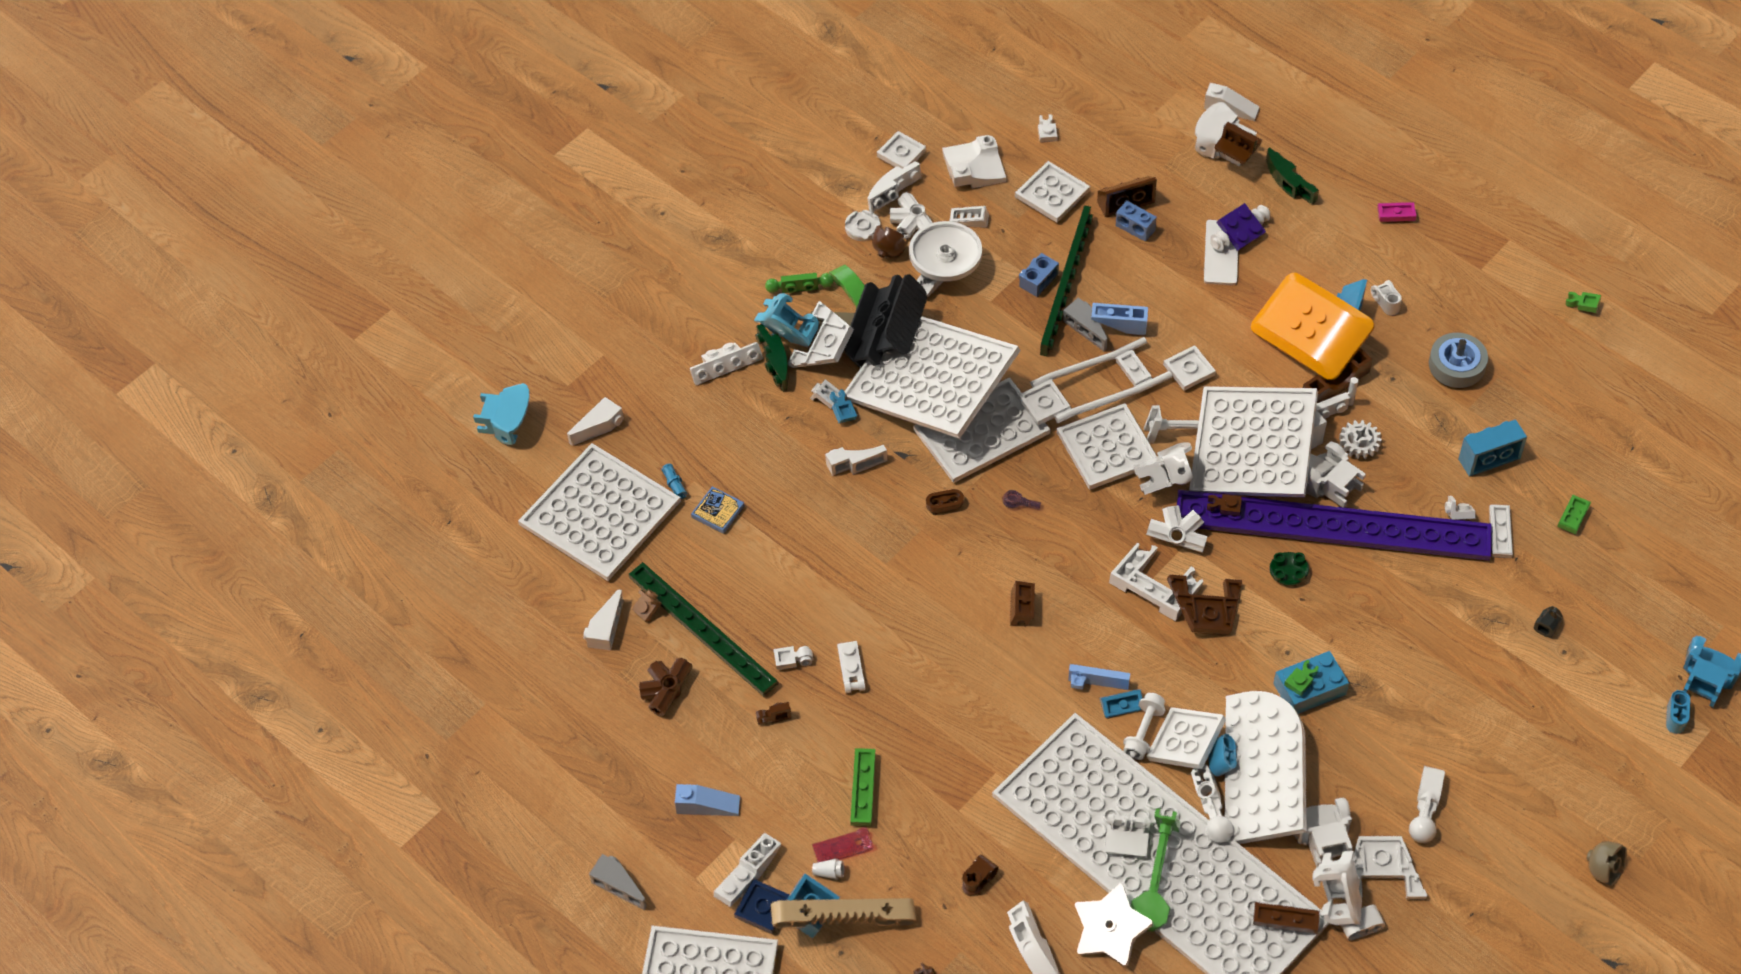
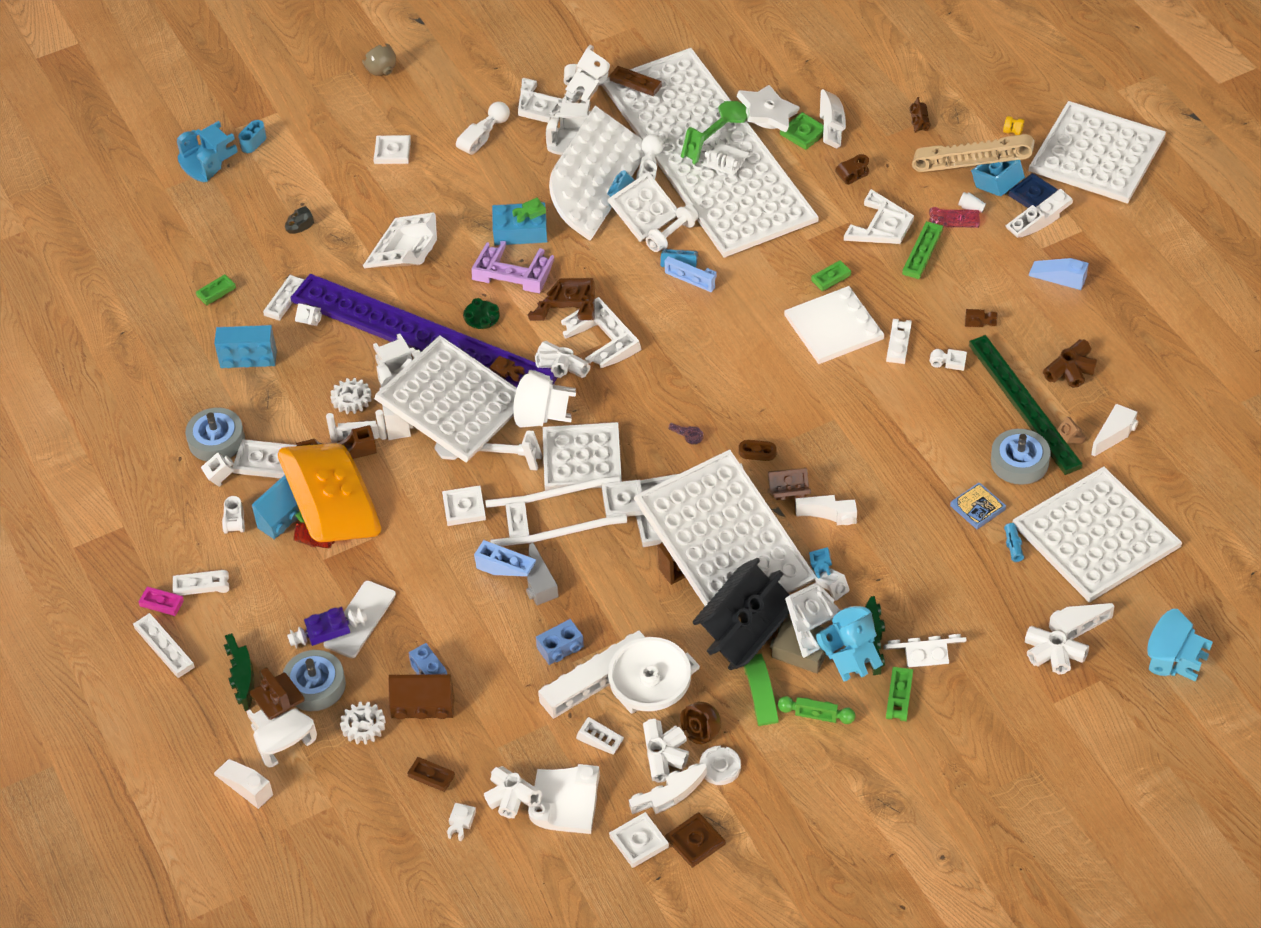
camera: 160 degrees left, 5 degrees down
(607, 387) = (1054, 647): none -> white piece
(612, 877) = (1151, 237): light grey slope -> none
(689, 561) = (1020, 456): none -> wheel
(735, 319) = (899, 693): none -> bright green plate
(858, 168) = (695, 839): none -> reddish brown tile
(897, 461) = (788, 483): none -> reddish brown bracket
(911, 812) = (888, 224): none -> white wing
(925, 668) = (834, 324): none -> white plate
(949, 723) = (831, 275): none -> bright green plate
(995, 258) = (581, 682): none -> white brick
(1013, 148) = (510, 792): none -> white piece
(1022, 603) = (728, 343): reddish brown hinge -> none
(1052, 191) = (496, 735): white plate -> none
(1059, 924) = (804, 131): none -> bright green tile
(1065, 283) = (537, 625): dark green plate -> none
(1087, 149) = (431, 774): none -> reddish brown plate
(1164, 167) = (362, 723): none -> white gear
(1223, 183) = (318, 678): none -> wheel
(1263, 621) = (489, 266): none -> lavender wedge
(1367, 179) = (163, 645): none -> white plate
(1374, 236) = (201, 582): none -> white plate
(1398, 357) = (259, 459): none -> white plate
(1419, 618) = (405, 242): none -> white slope
(1429, 331) = (218, 468): none -> white brick
(1514, 751) = (392, 149): none -> white tile
(1585, 302) = (56, 457): bright green plate -> none

